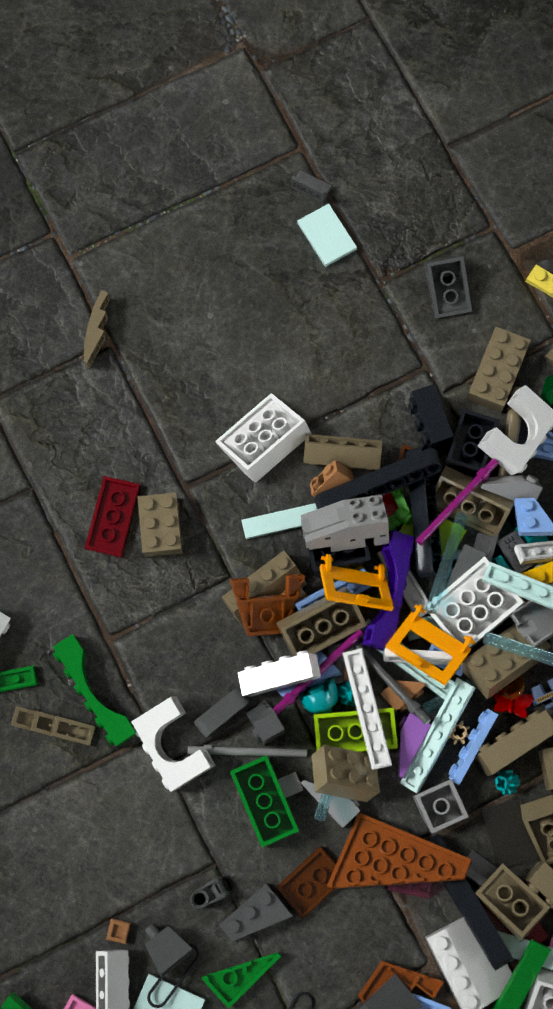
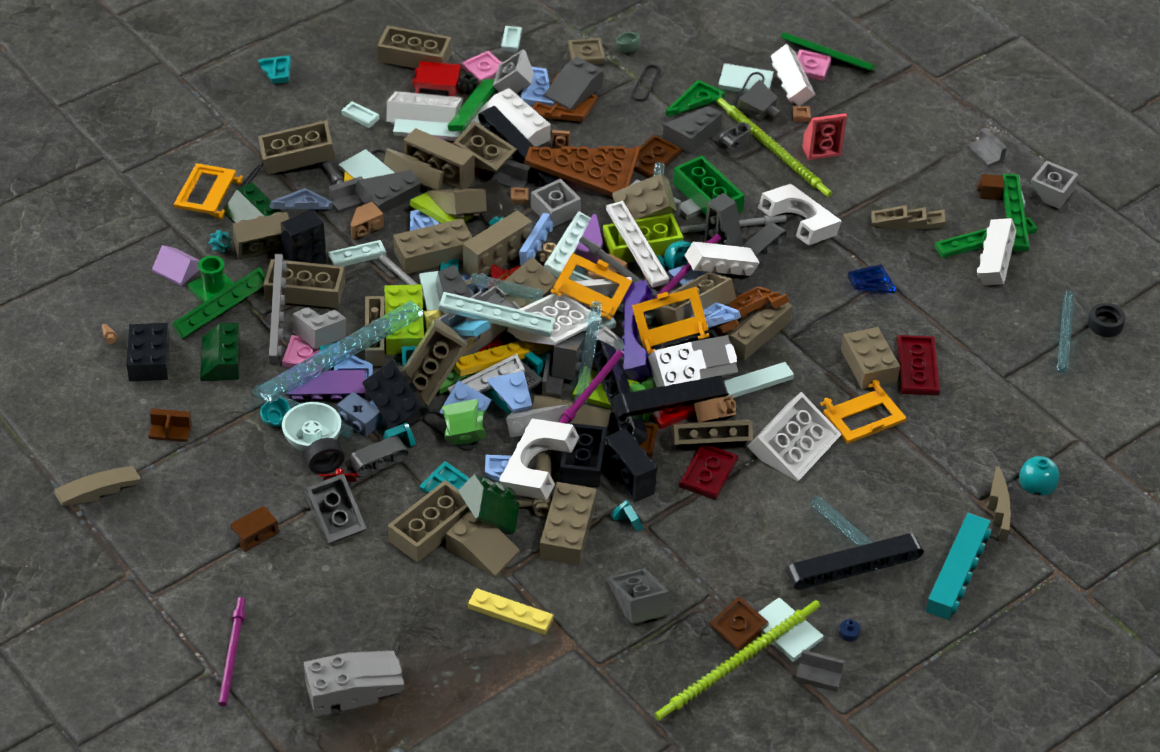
camera: 165 degrees right, 30 degrees down
(46, 358) = (1039, 475): none -> teal cylinder
(73, 657) = (910, 259): green arch -> none
(110, 864) = (824, 136): none -> coral slope
(122, 639) = (872, 279): none -> clear blue wing
(157, 269) = (958, 566): none -> teal brick
(188, 474) = (837, 413): none -> light orange piece
(200, 946) = (773, 146): none -> lime hose
(246, 336) = (838, 520): none -> clear light blue axle
(247, 290) = (854, 561): none -> black beam
(272, 226) = (849, 630): none -> dark blue tile
(305, 590) = (719, 314): none -> light blue wing
(353, 414) = (708, 471): none -> dark red tile
(367, 243) = (739, 624): none -> reddish brown tile
(417, 911) = (560, 139): none -> medium nougat slope
(436, 178) = (677, 701): none -> lime hose
(438, 371) = (626, 511): none -> teal tile
(475, 840) = (519, 195): none -> medium nougat tile

